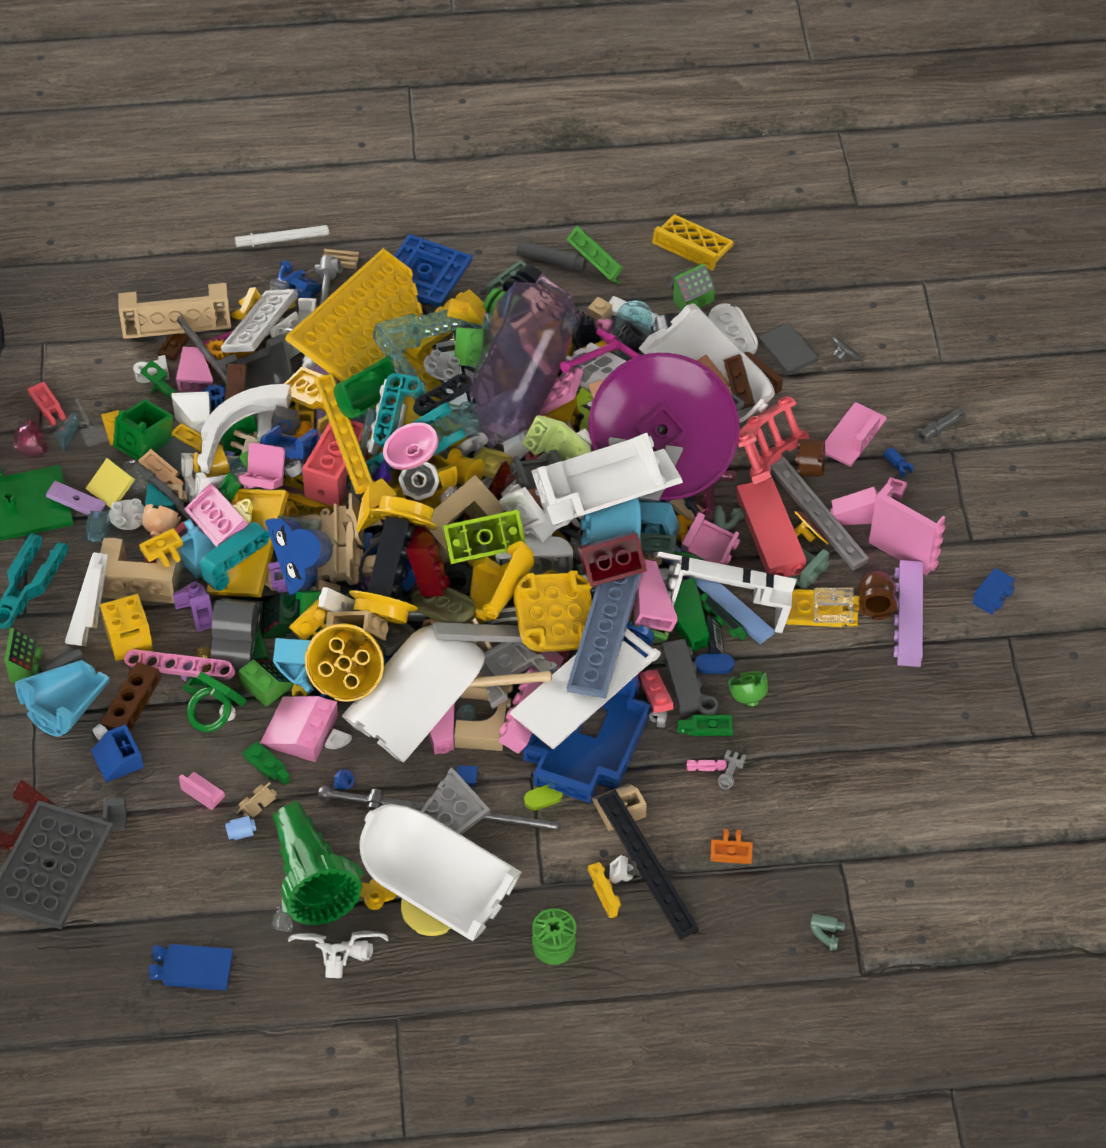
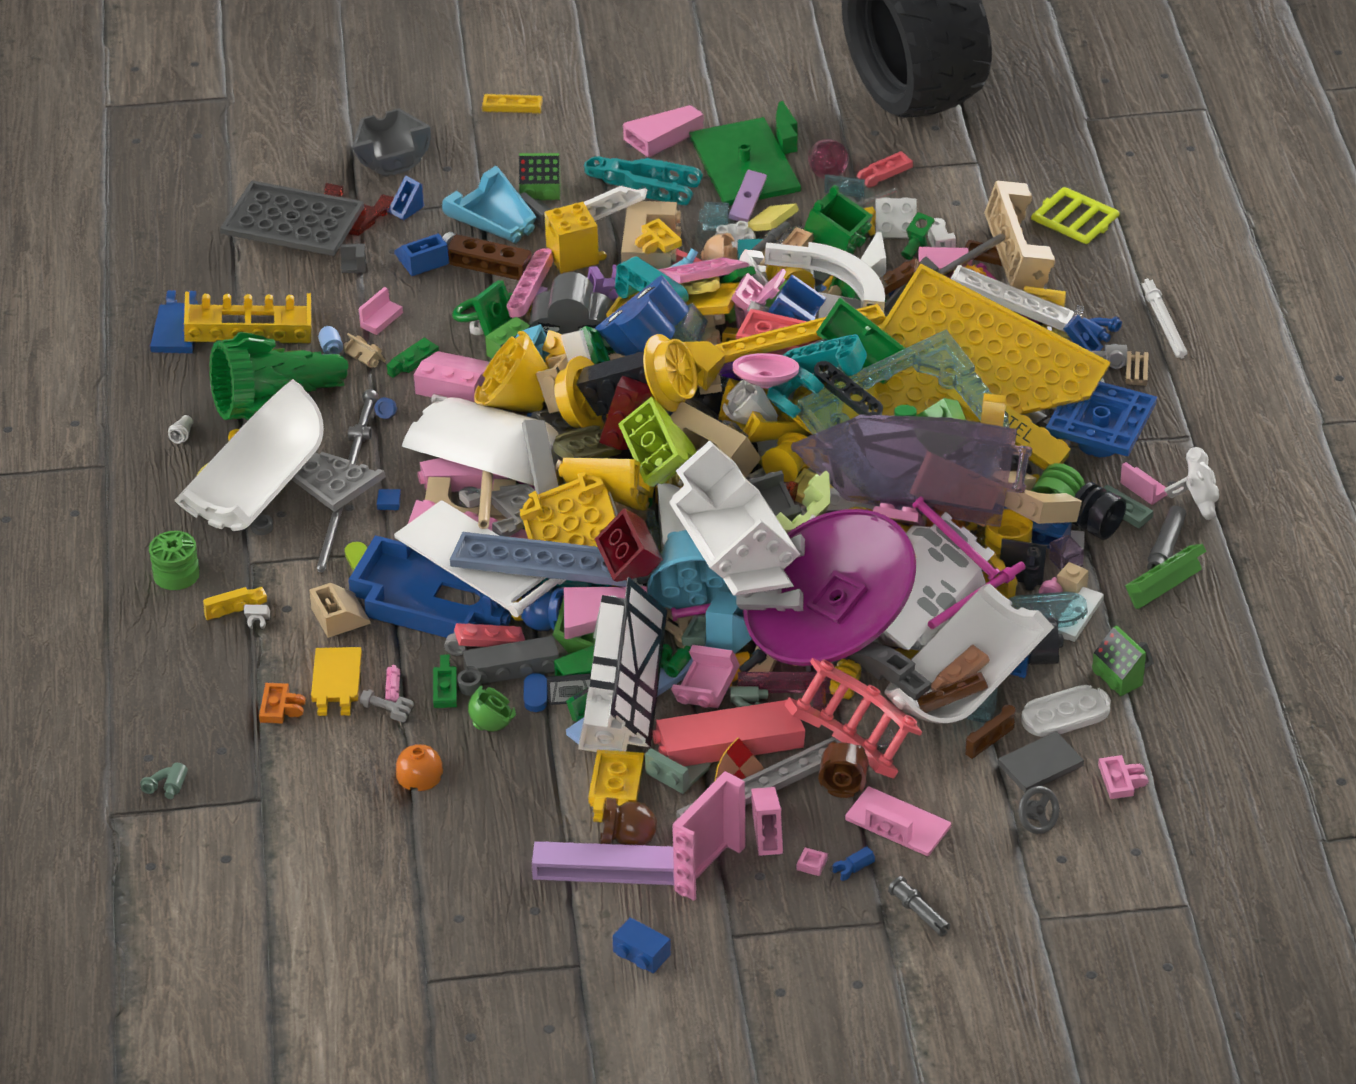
camera: 90 degrees right, 10 degrees down
(29, 769) = (408, 199): none -> blue slope
(119, 395) = (894, 216): none -> white bracket
(125, 266) = (1071, 231): none -> neon yellow bar
(197, 862) = (205, 323): none -> yellow window
(333, 963) = (162, 410): white plant -> none
(441, 365) = (892, 388): light grey dish -> none
(468, 362) = (905, 410): none -> green tile
(484, 265) = (1142, 484): none -> bright pink panel
(498, 226) = (1199, 482): none -> white piece
(631, 336) = (1025, 585): black tyre -> none
(647, 865) = (254, 626): black tile -> none
(690, 248) = (1201, 662): yellow fence -> none
(699, 807) = (336, 678): none -> yellow tile
(805, 305) = (1121, 778): none -> bright pink hinge
(806, 742) = (419, 767): none -> orange cylinder
(833, 597) = (612, 767): clear tile -> none

